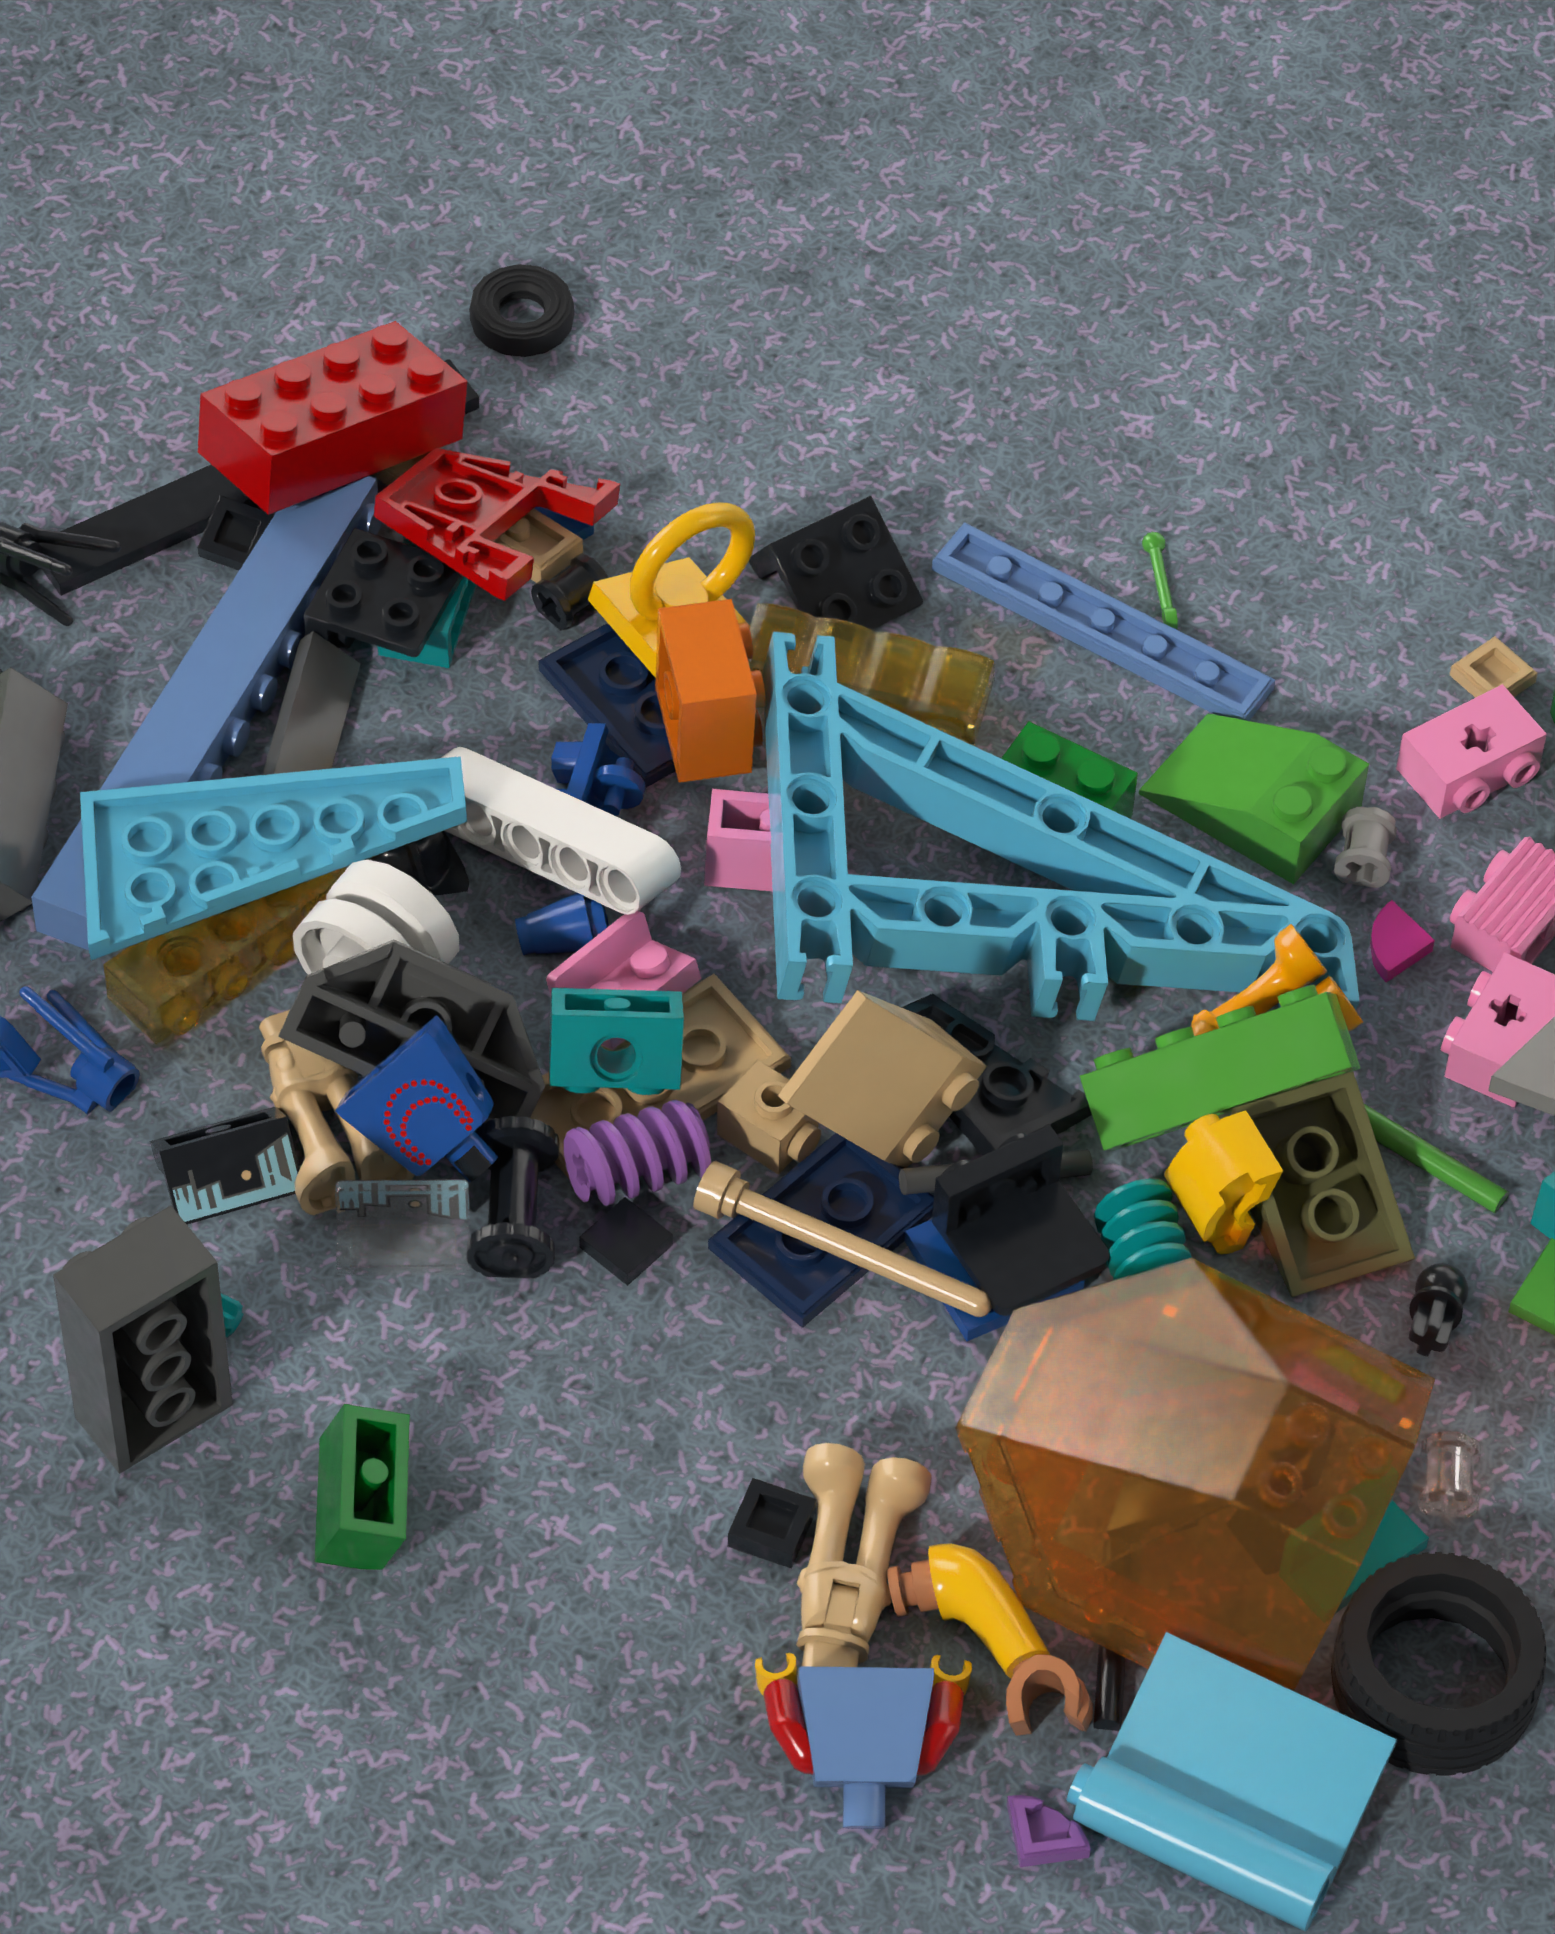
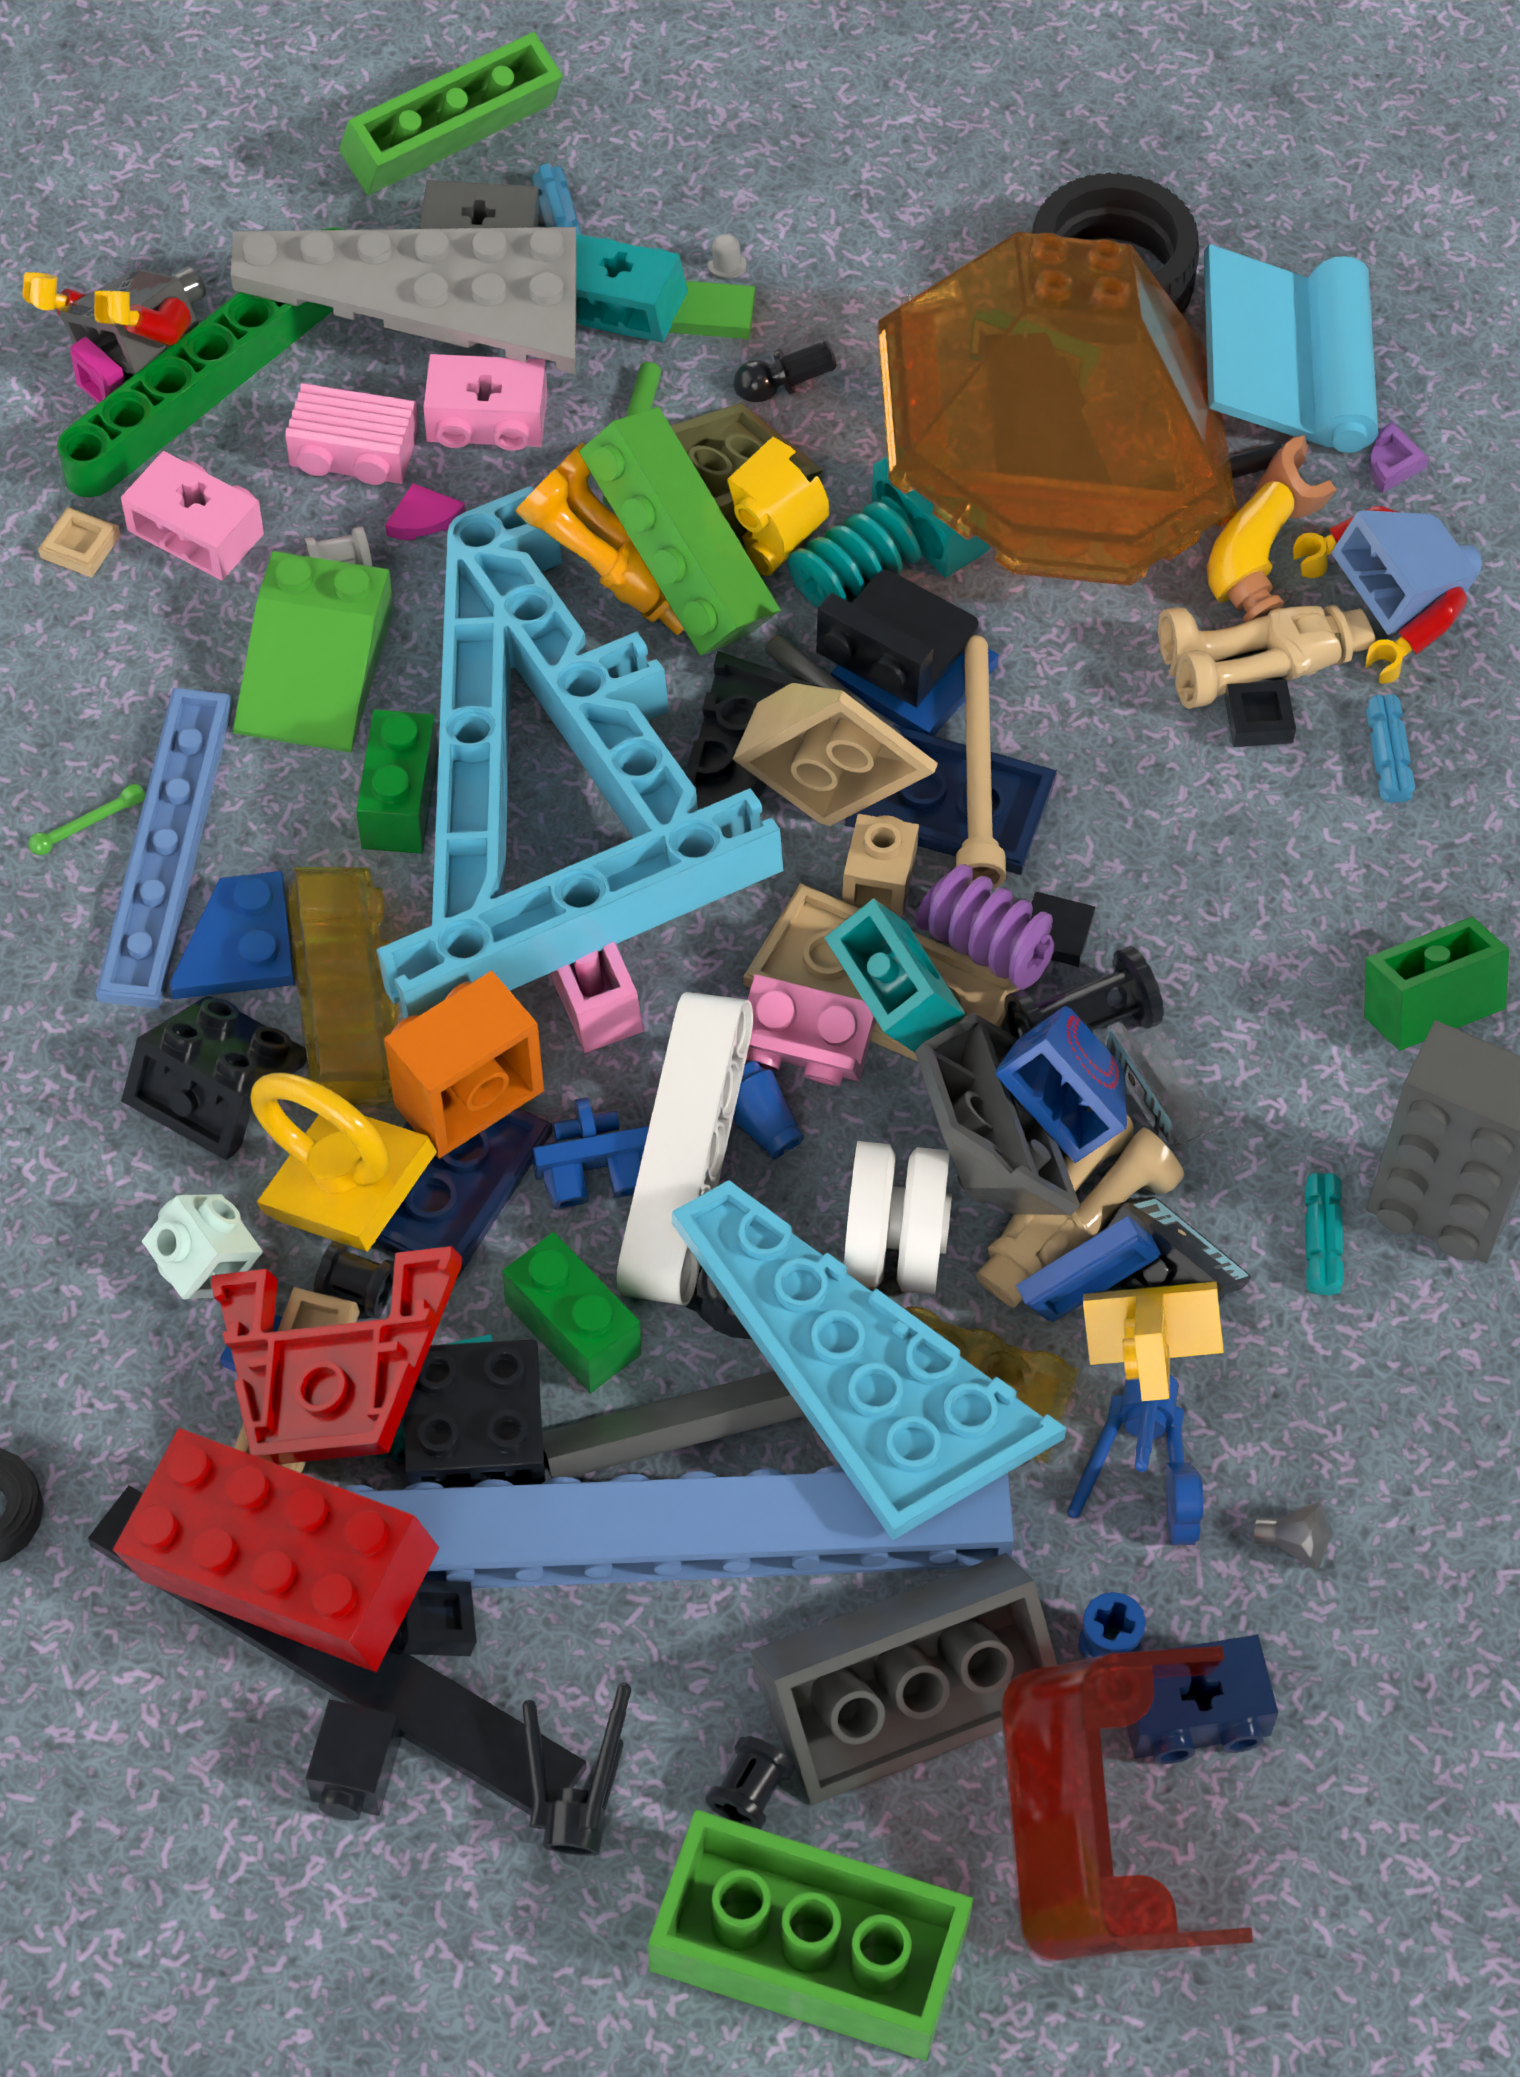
camera: 115 degrees left, 5 degrees up
(154, 442) = (353, 1760): none -> black brick
(154, 1083) = (1150, 1328): none -> yellow bracket
(241, 1066) = (1089, 1269): none -> blue tile
(443, 708) = (572, 1312): none -> green brick
(640, 486) = (197, 1240): none -> light aqua brick
(670, 1626) = (1390, 748): none -> dark azure axle
(965, 621) = (238, 940): none -> blue wing

